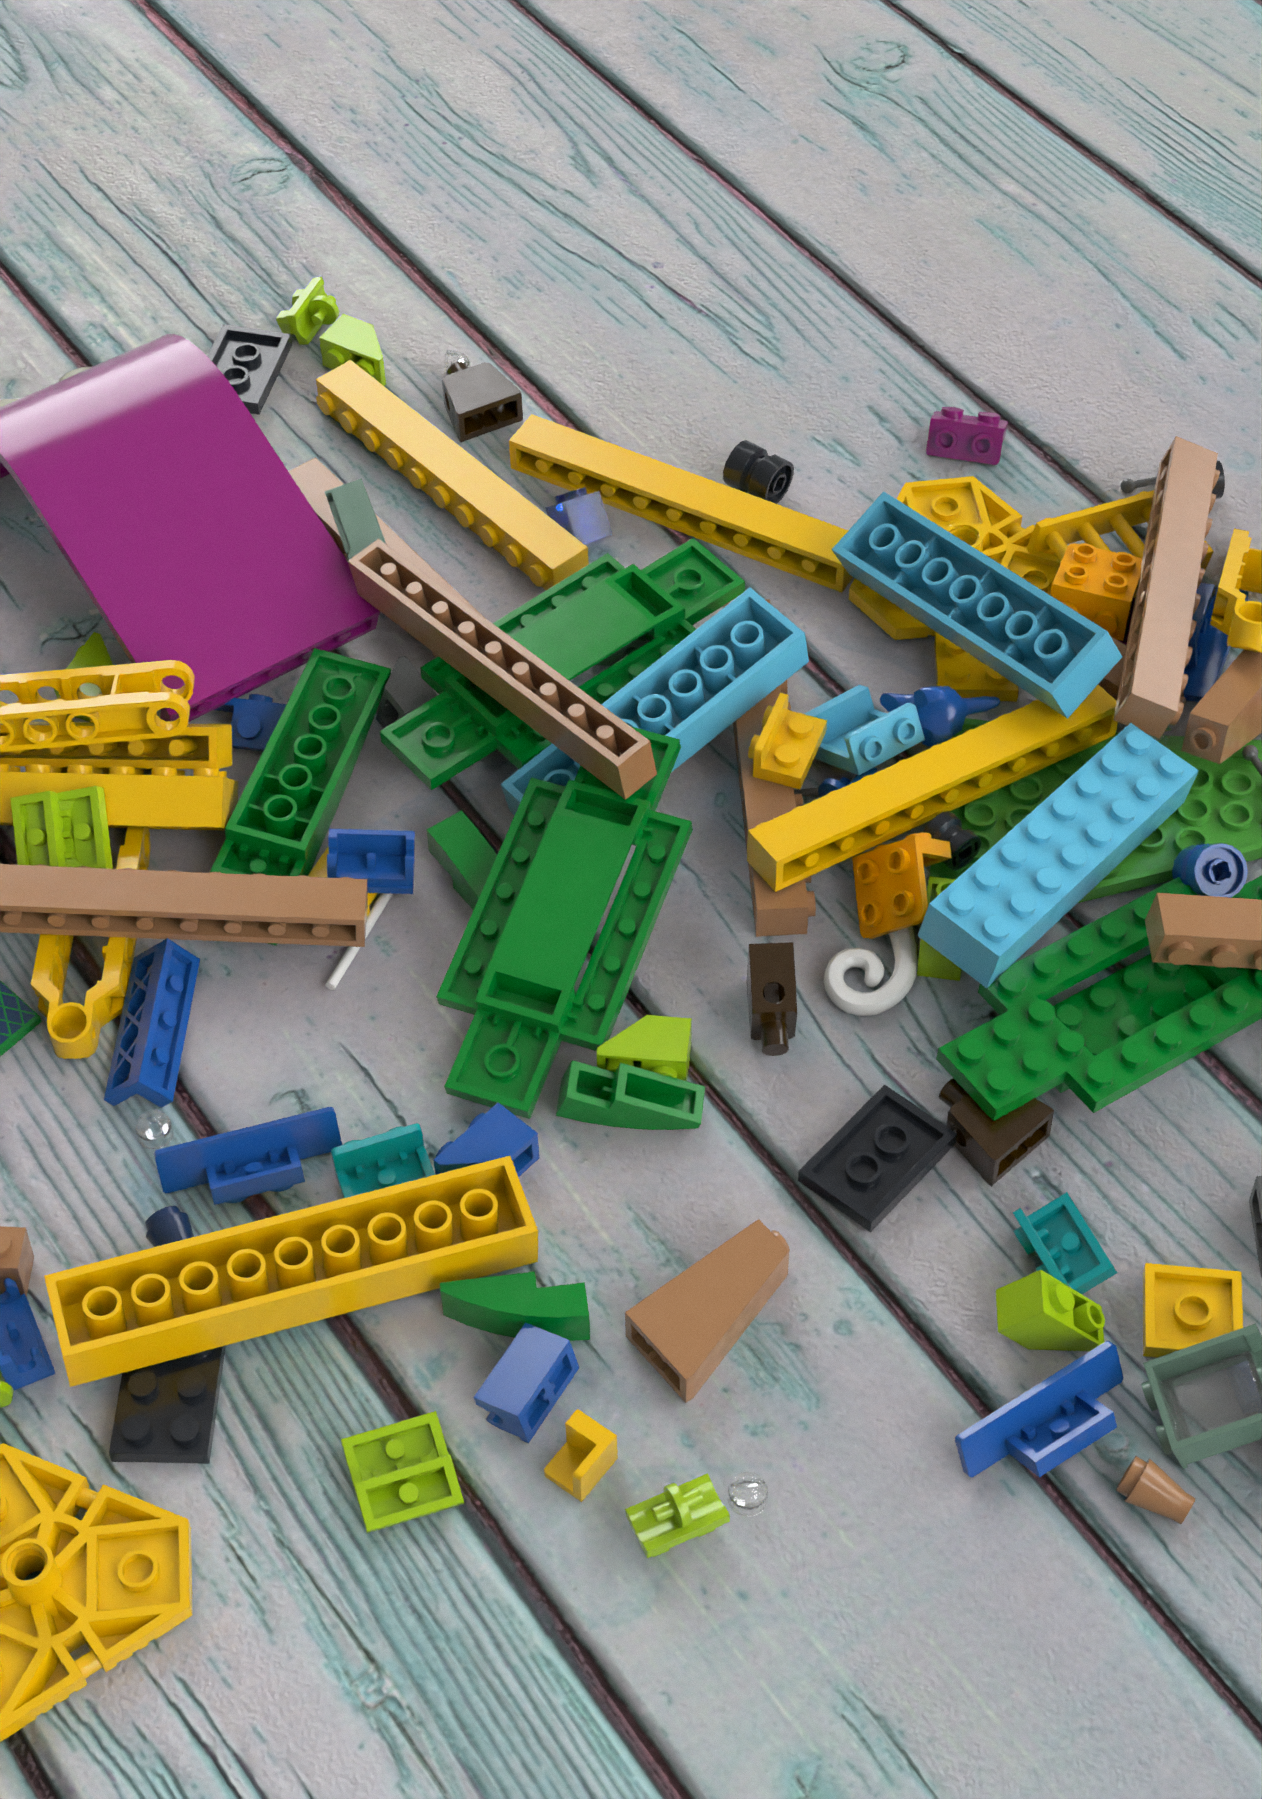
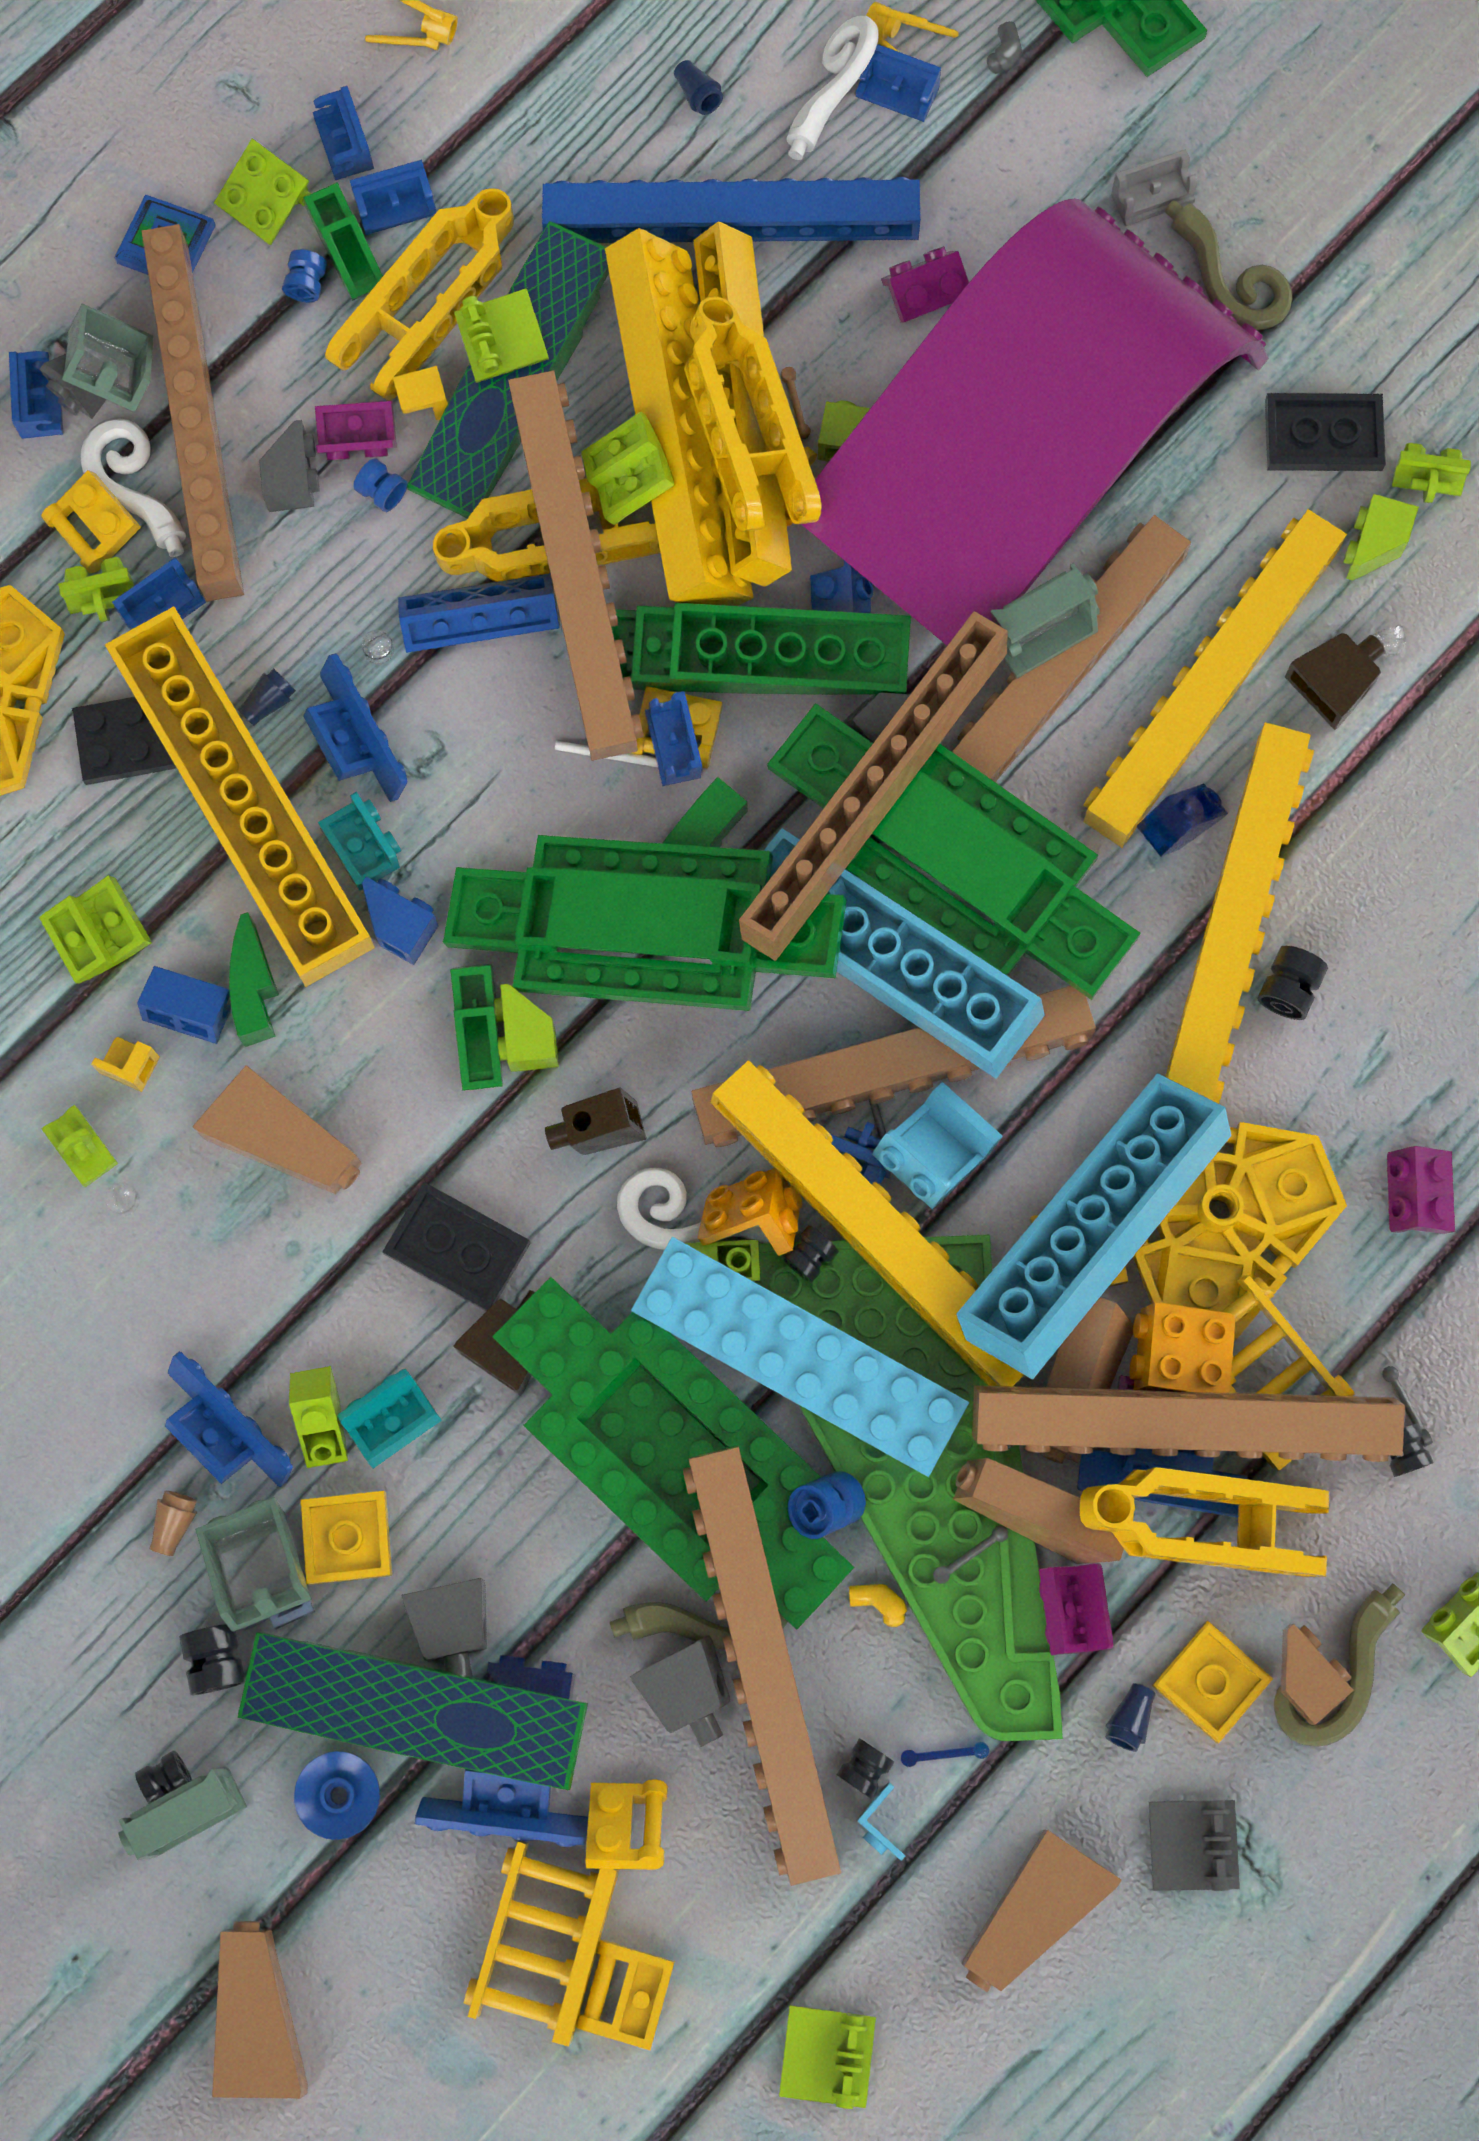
camera: 80 degrees right, 25 degrees up
(786, 744) = (891, 1078): yellow bracket -> none
(939, 710) = (975, 1214): blue animal -> none

